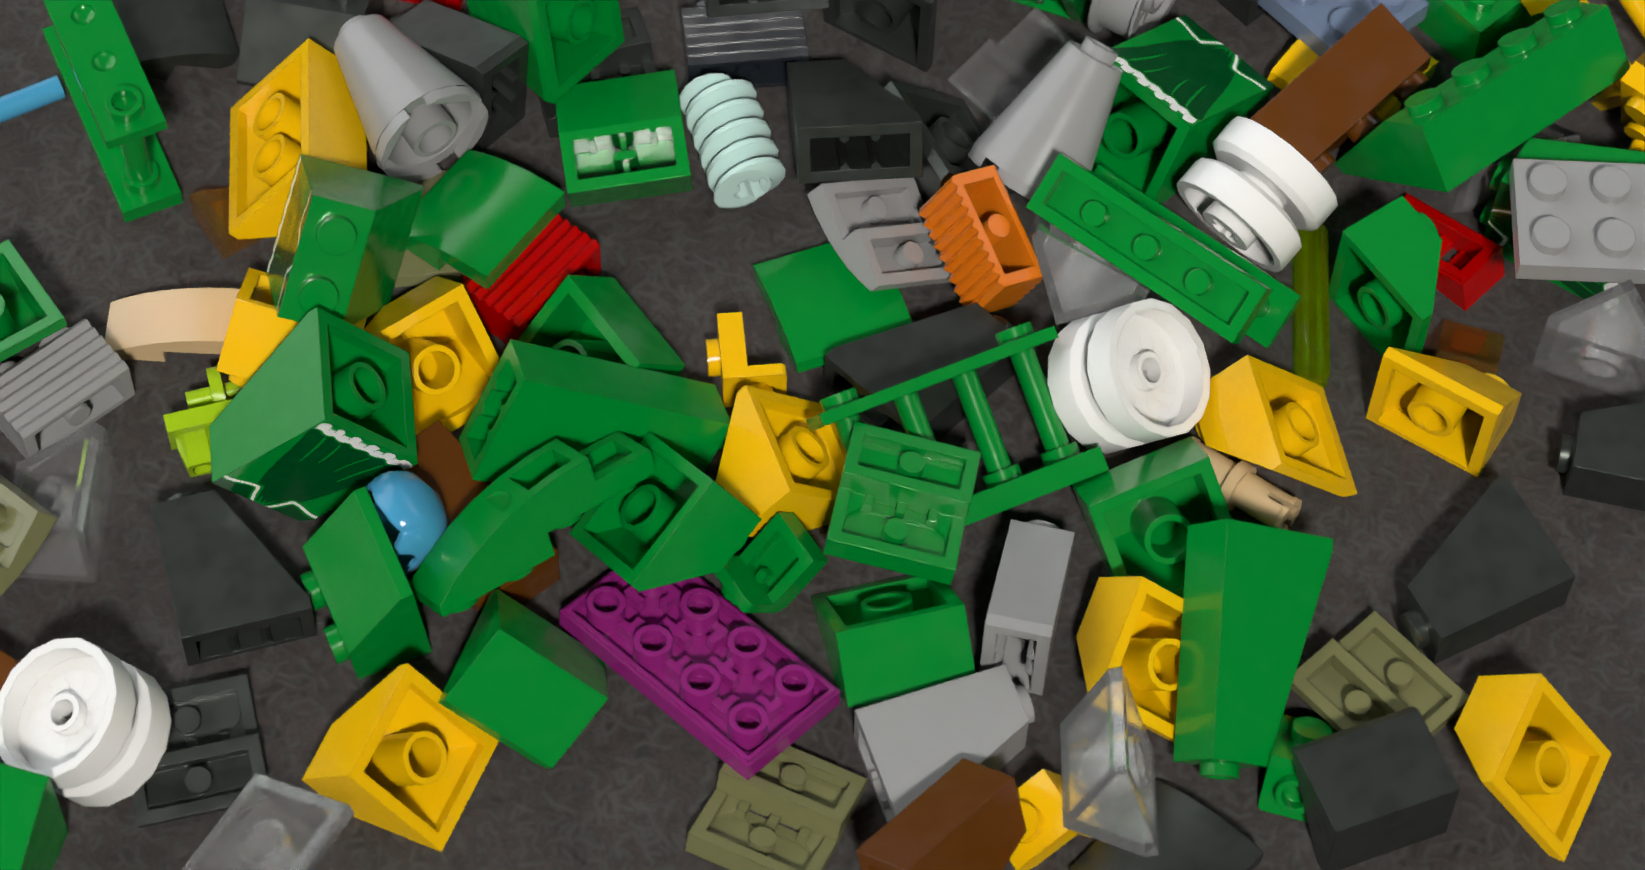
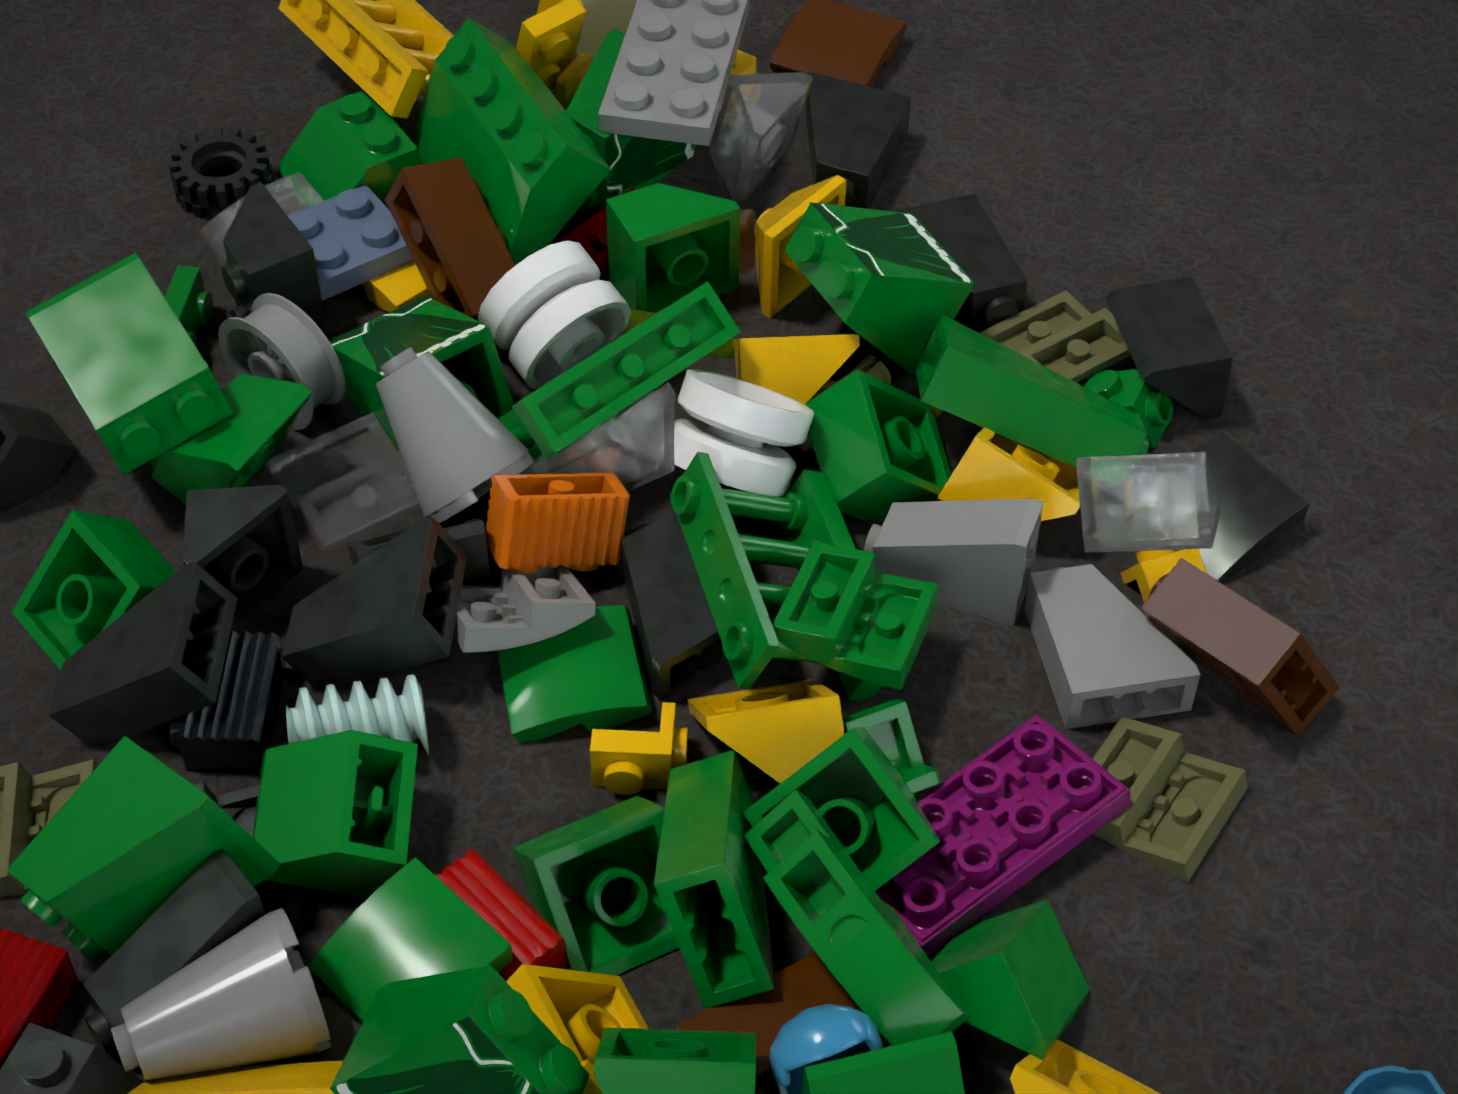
camera: 80 degrees left, 10 degrees down
(893, 638) = (978, 668): green slope -> none
(1365, 464) = (879, 275): none -> green slope
(1533, 755) = (1112, 258): yellow slope -> none

